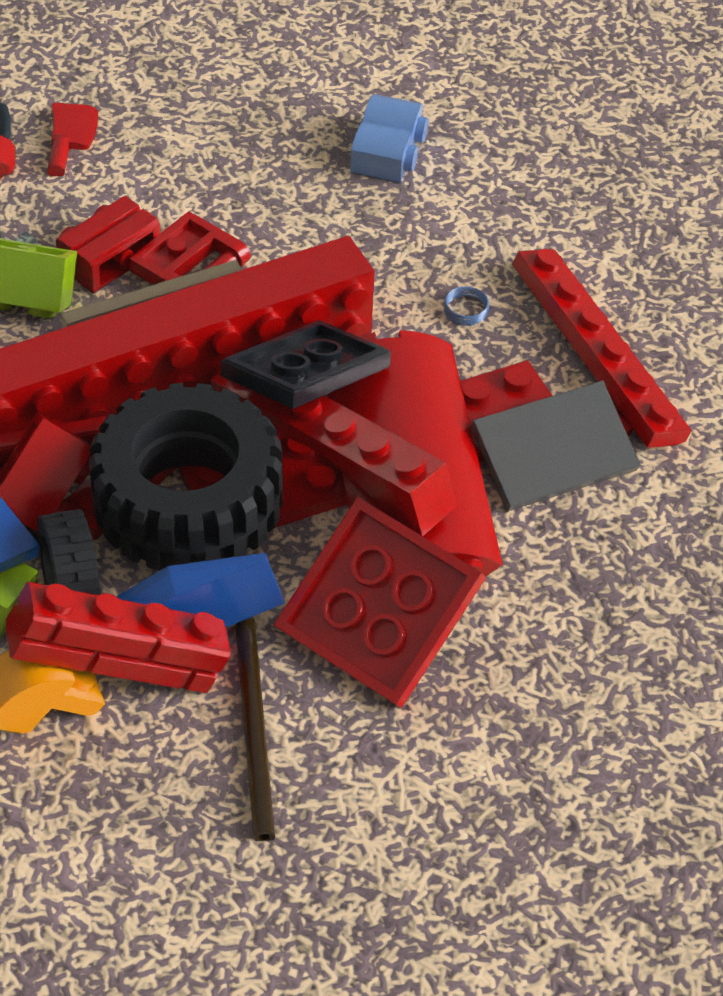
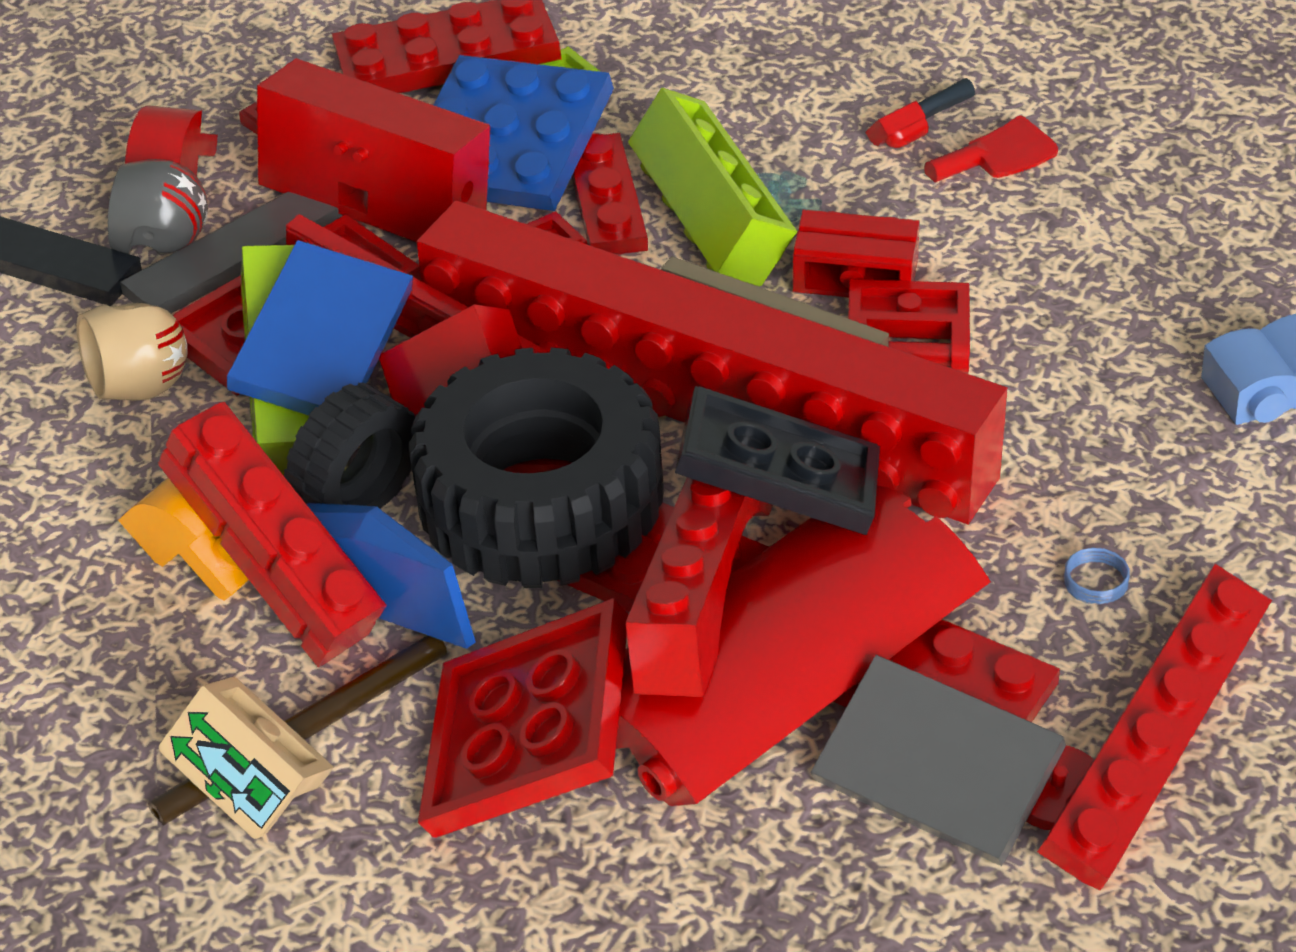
camera: 60 degrees right, 5 degrees down
(276, 760) = (242, 755): none -> panel

